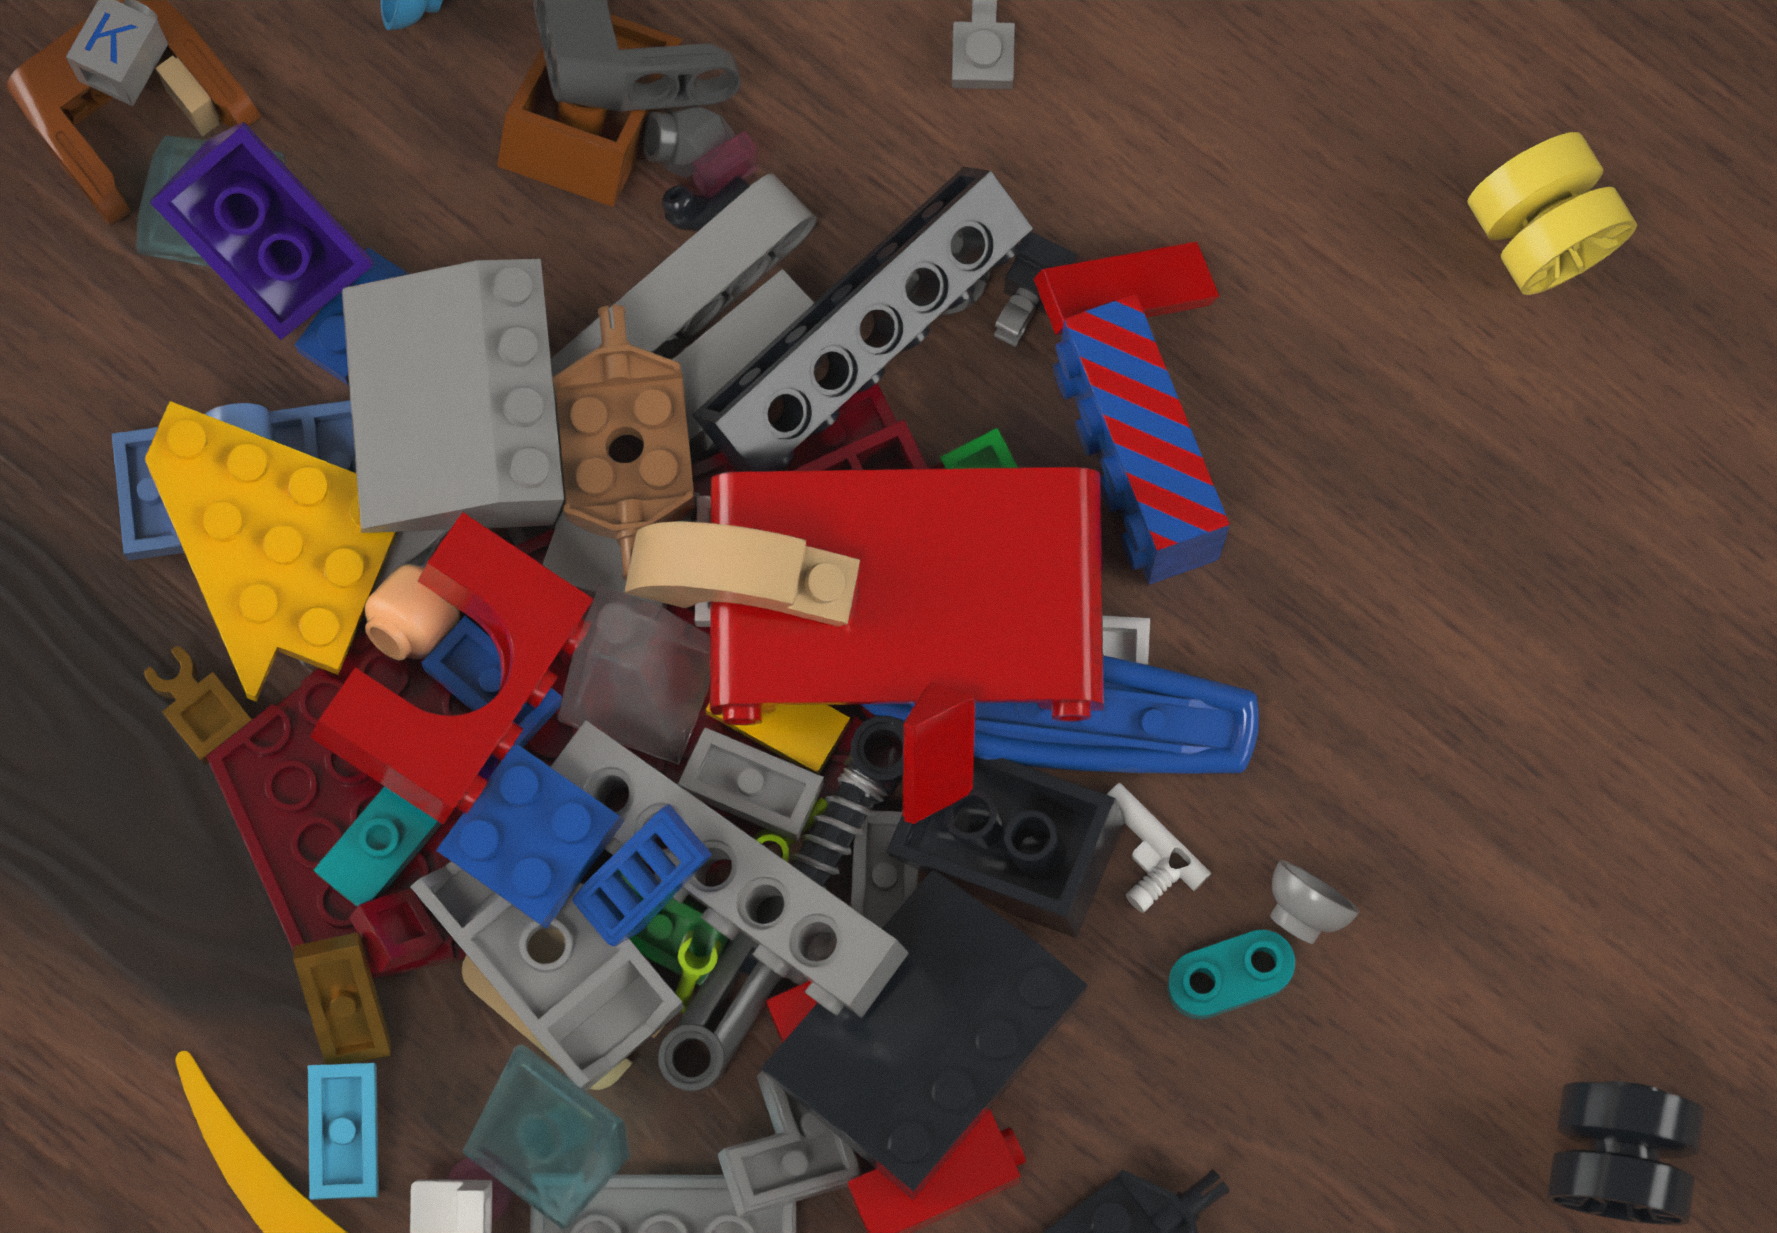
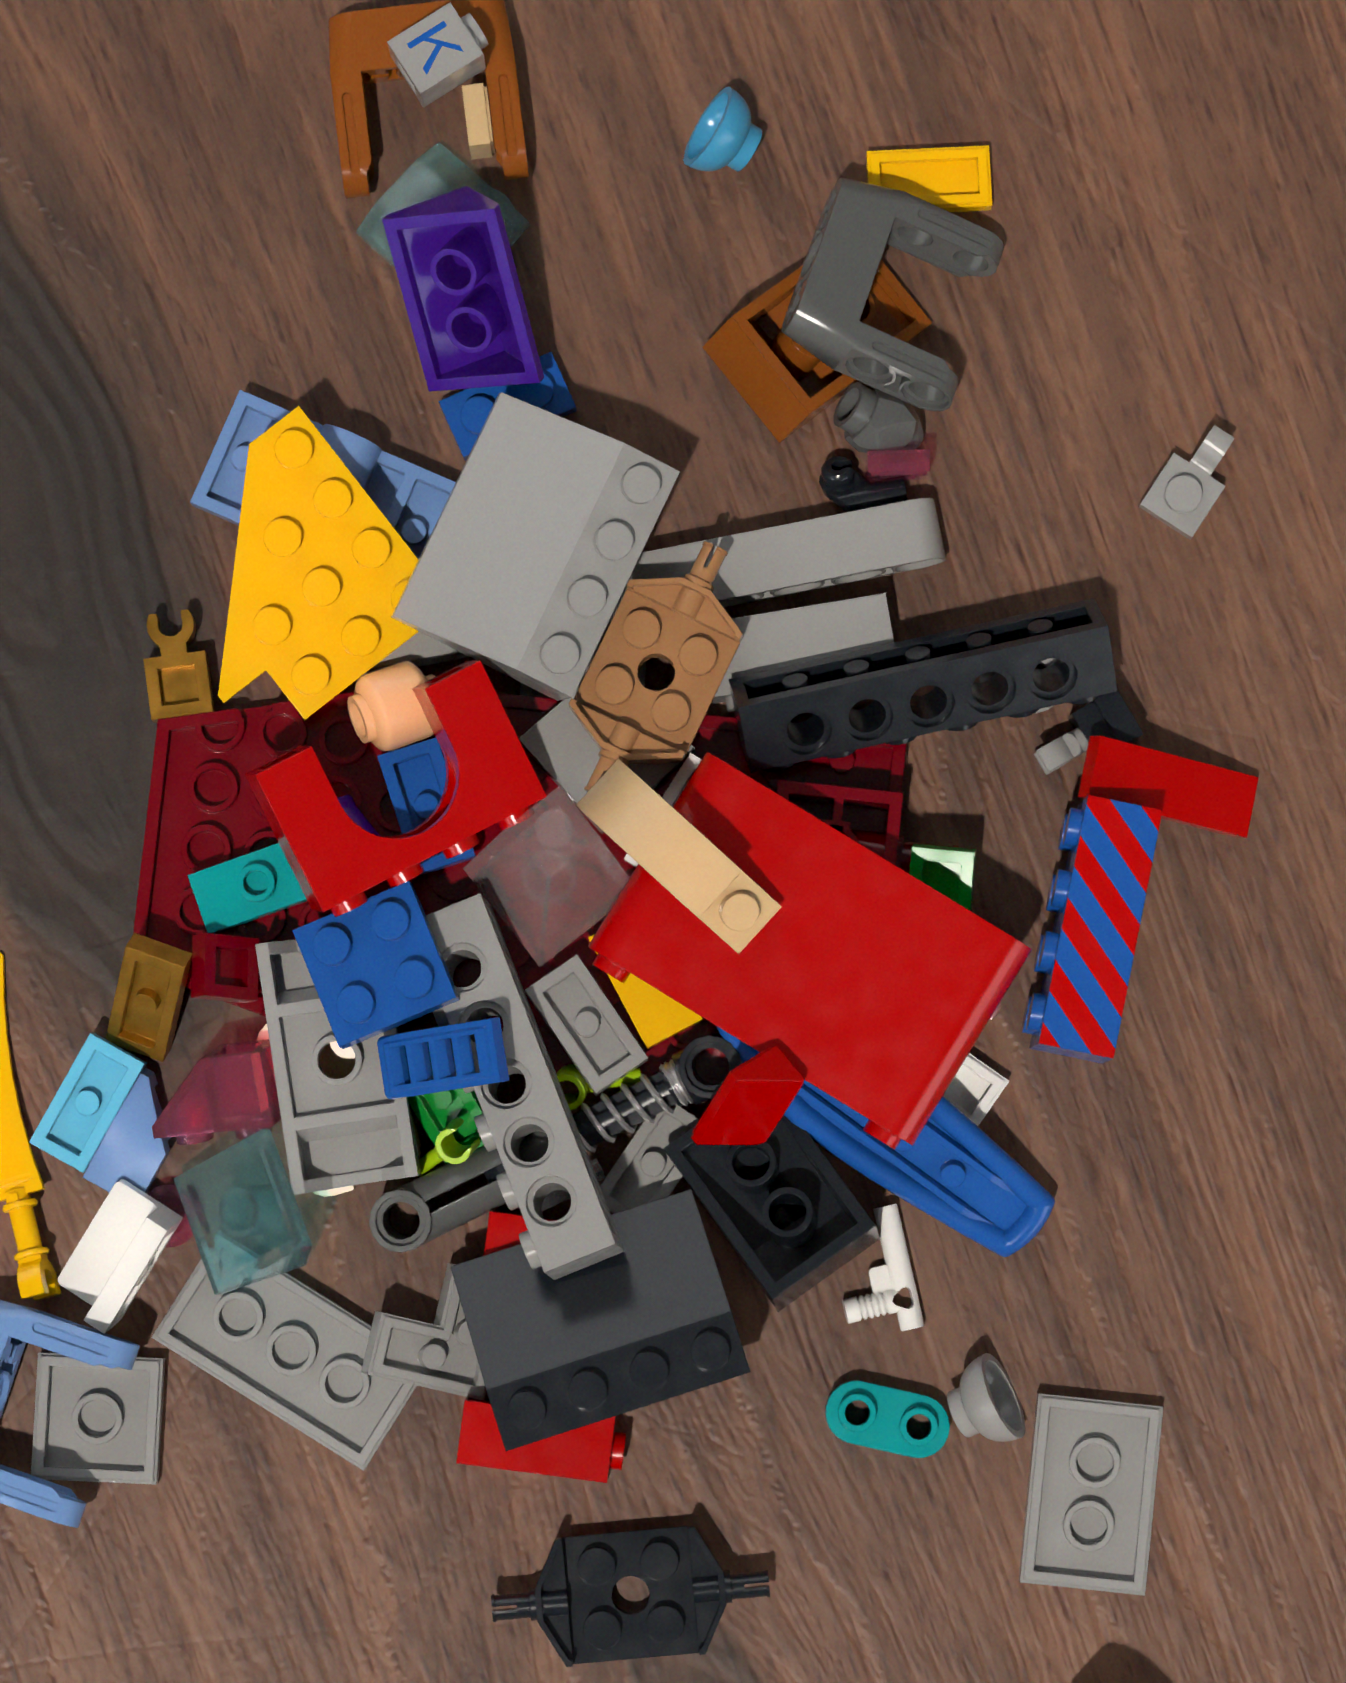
camera: 30 degrees right, 10 degrees up
(407, 1140) = (129, 1144): none -> medium blue slope
(460, 1041) = (224, 1092): none -> clear pink slope
(1449, 930) = (1090, 1494): none -> light grey tile

